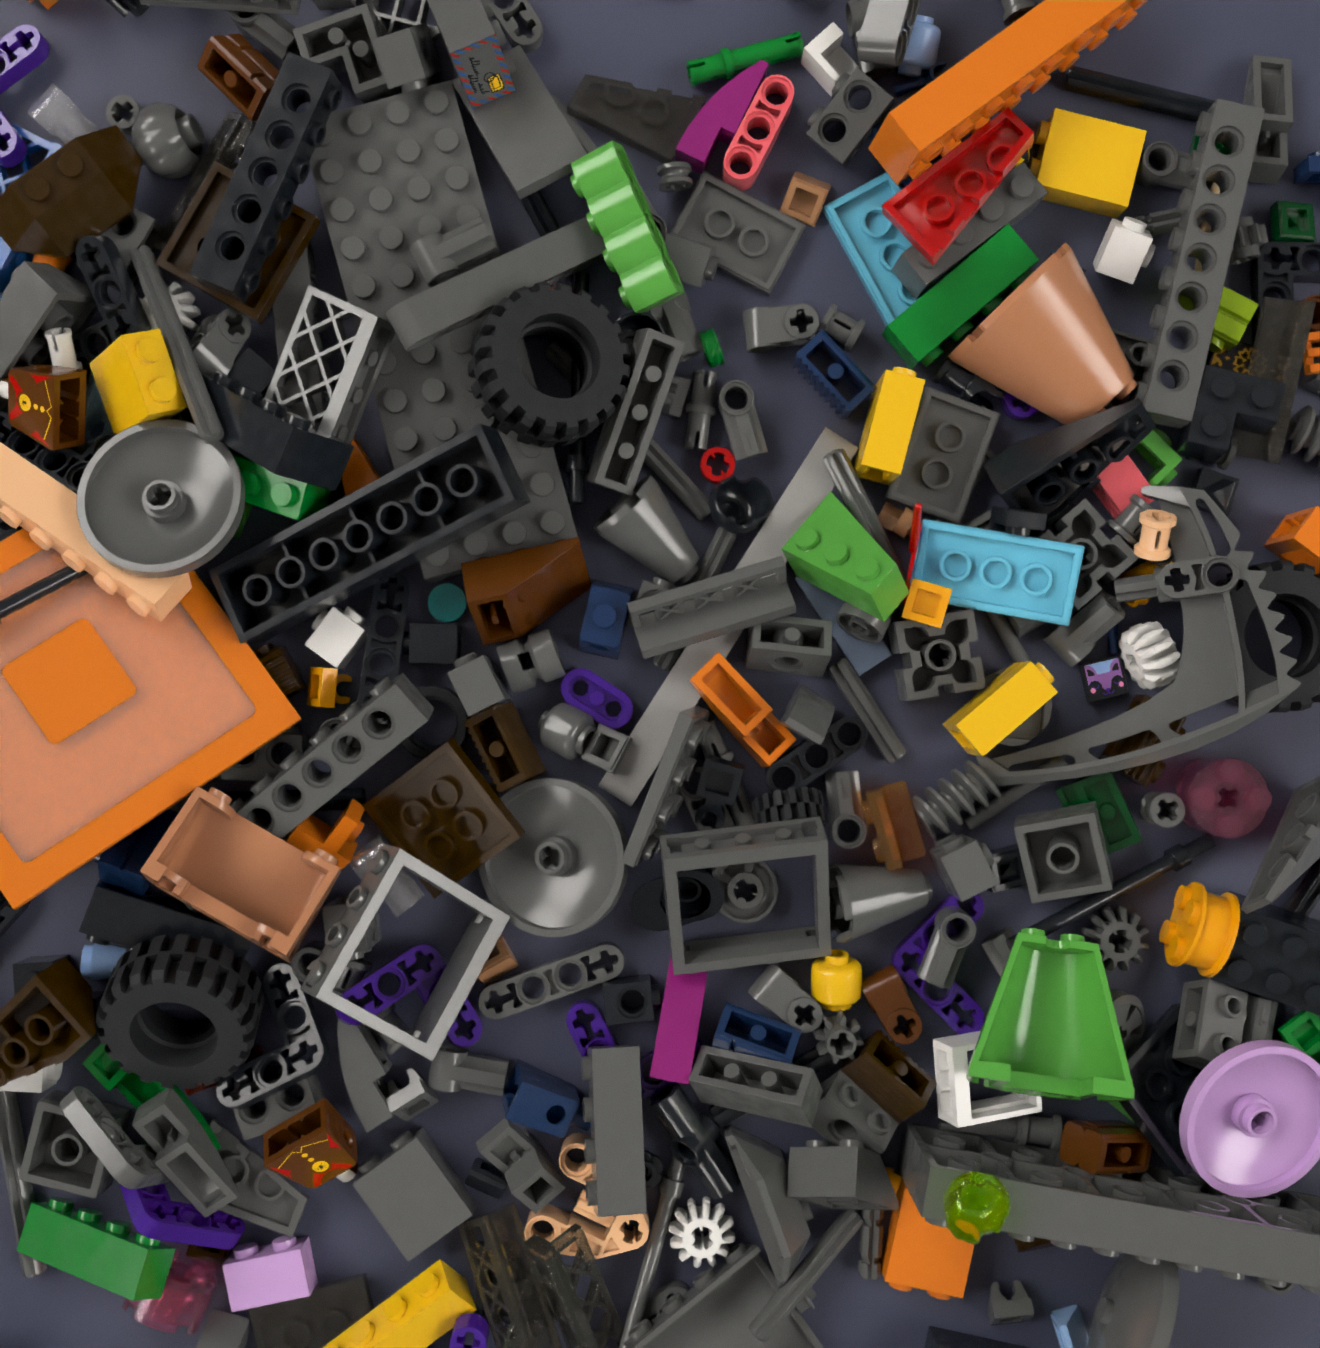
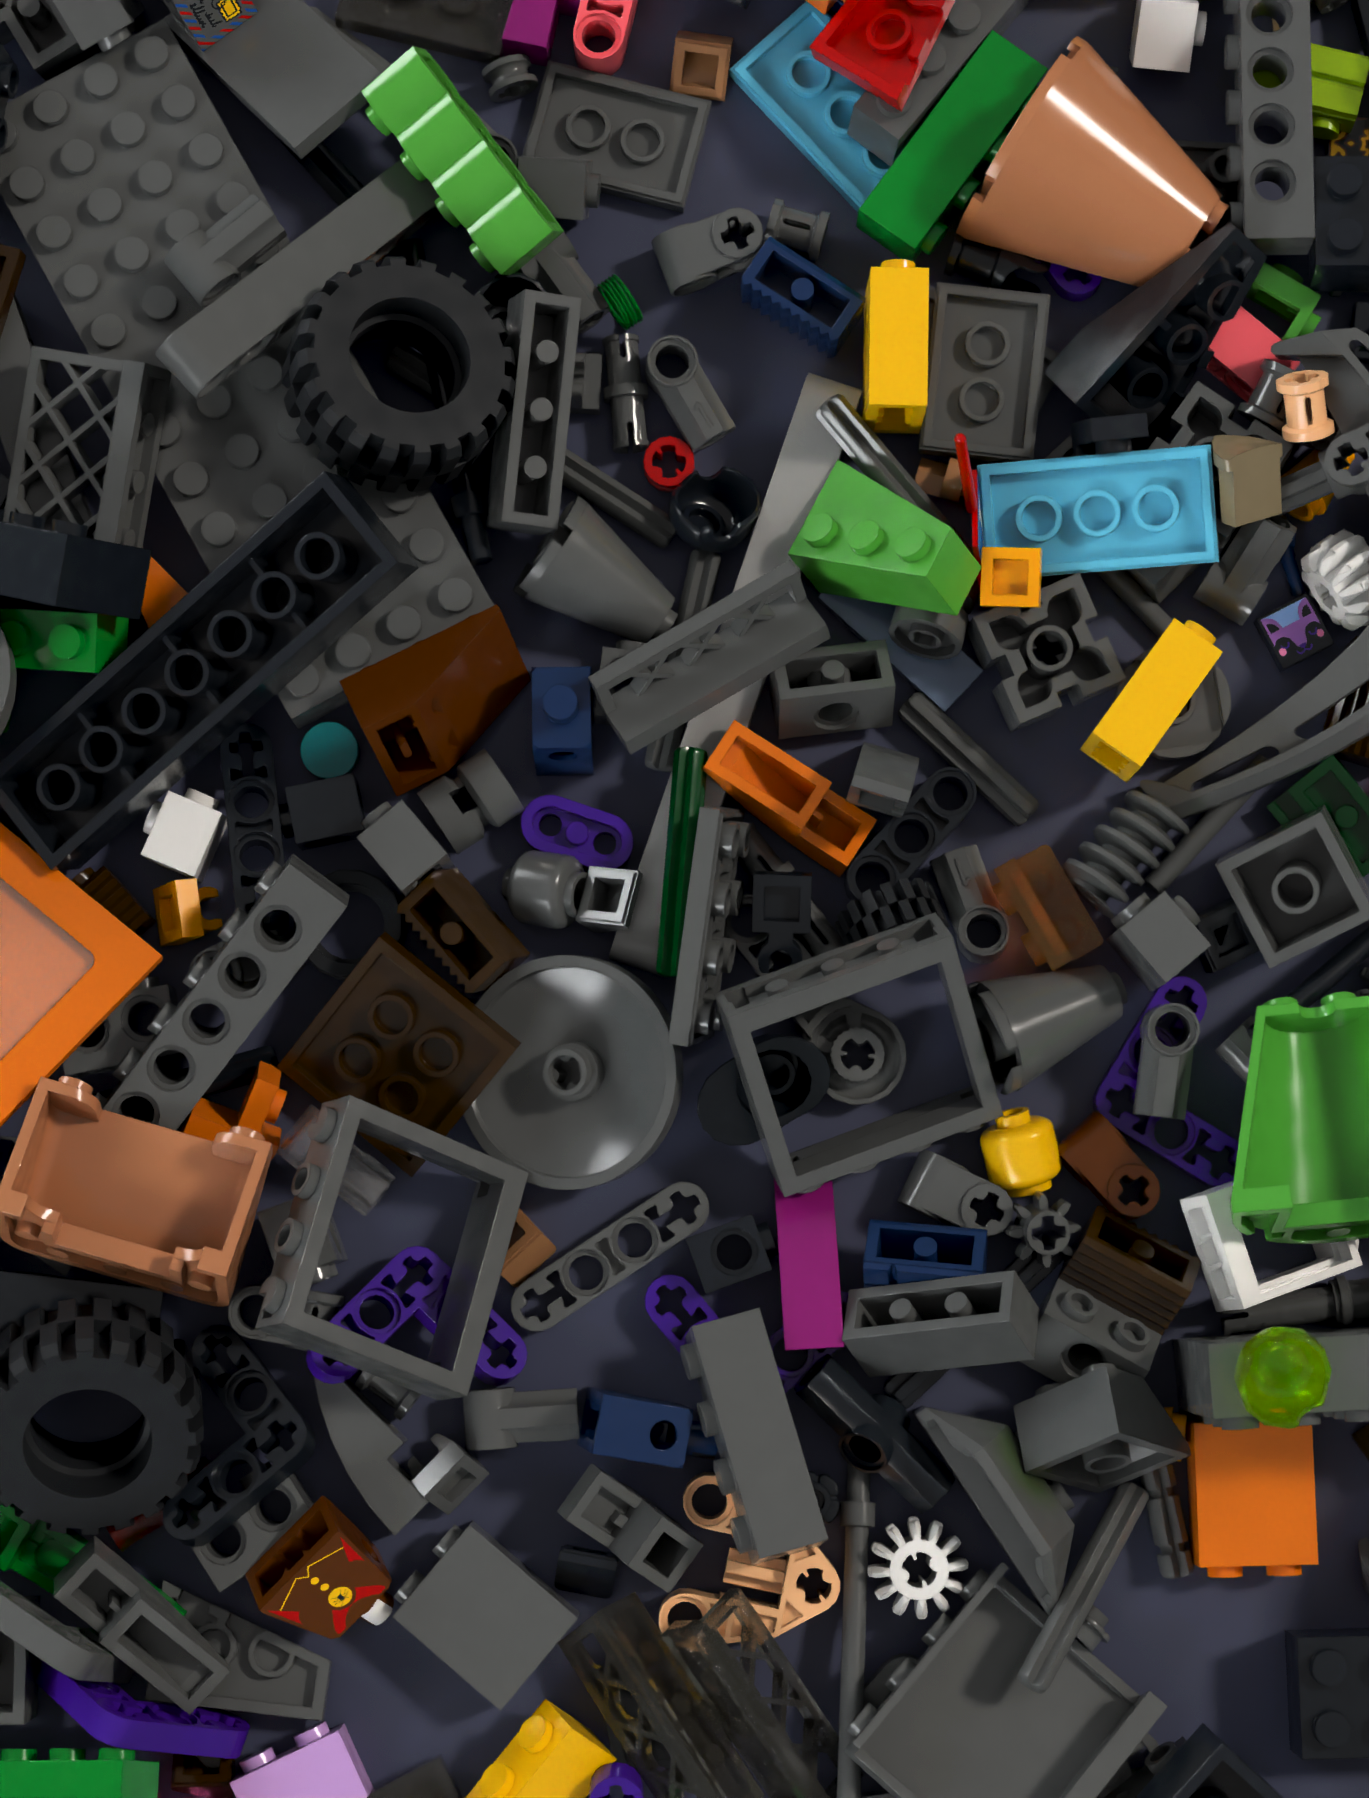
camera: 15 degrees left, 5 degrees down
(665, 719) = (685, 800): none -> dark green axle
(1103, 574) = (1247, 478): none -> dark tan tile

